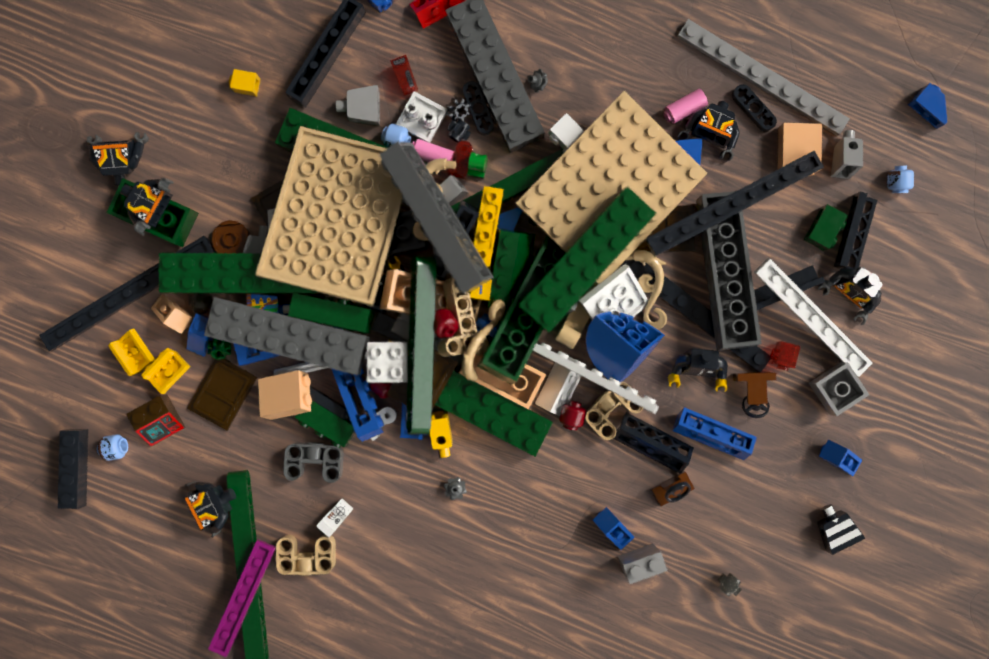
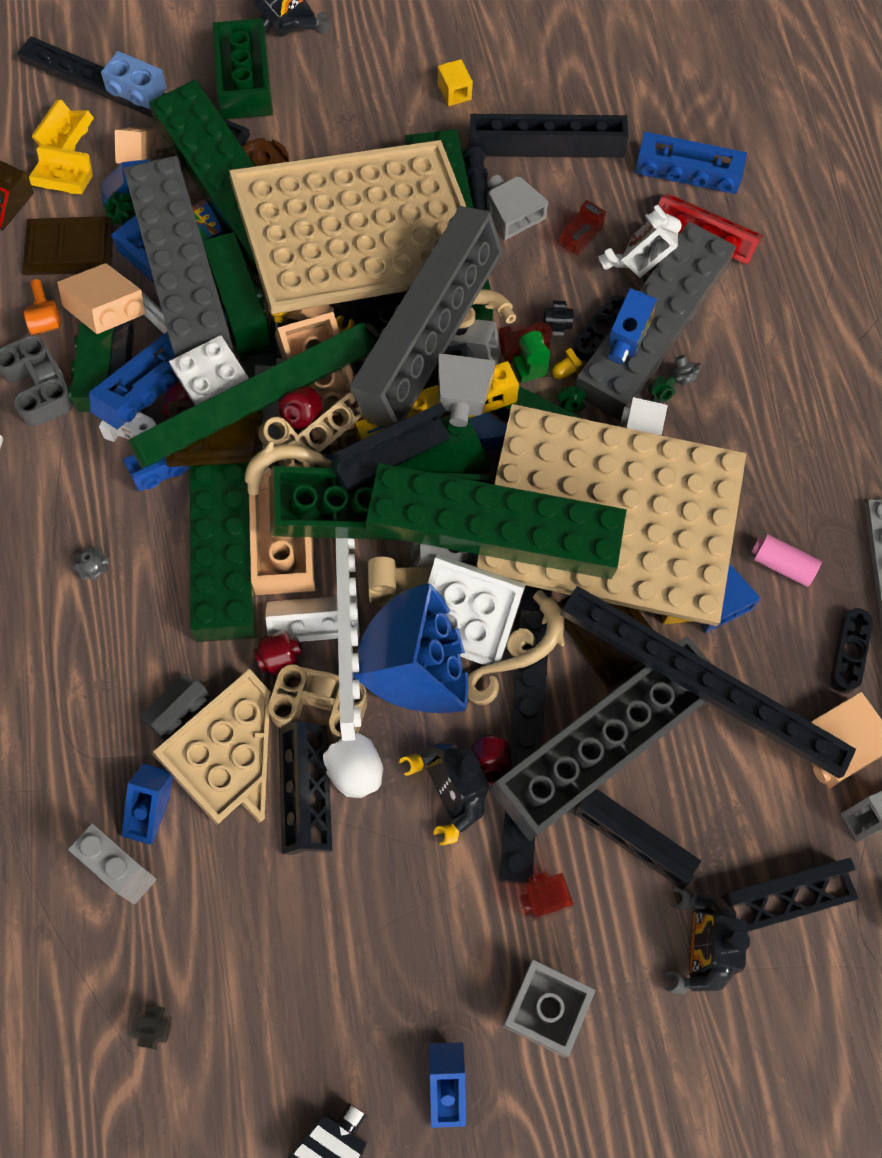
camera: 55 degrees right, 20 degrees down
(123, 285) = (133, 79): none -> medium blue brick
(146, 202) = (247, 44): torso -> none
(269, 434) = (43, 314): none -> orange beam
(326, 115) = (476, 176): none -> black pin
(393, 134) = (509, 260): light blue head -> none
(422, 117) = (545, 271): white plate -> none
(430, 151) = (509, 288): bright pink brick -> none
(441, 427) = (156, 499): yellow torso -> none
(446, 45) = (647, 244): none -> white torso
(452, 109) = (590, 306): black gear -> none
(492, 146) = (567, 366): none -> yellow piece
(492, 225) = (464, 386): none -> light grey torso
(500, 94) = (631, 325): none -> blue torso
(506, 290) = (390, 447): none -> black fence
(516, 158) = (572, 399): none -> dark green plate
(541, 102) = (662, 389): none -> dark green plate
(575, 484) = (176, 707): none -> dark grey bracket
(610, 473) = (224, 751): none -> tan wing
(666, 413) = (354, 766): none -> white hair
(673, 489) = (254, 855): reddish brown piece -> none
(699, 338) = (493, 756): none -> dark red head
(714, 126) = (789, 609): black torso -> none
(714, 434) = (367, 861): blue brick -> none
(756, 391) = (467, 886): reddish brown piece -> none
(812, 316) = (625, 902): white plate -> none
(826, 227) = (766, 844): dark green brick -> none

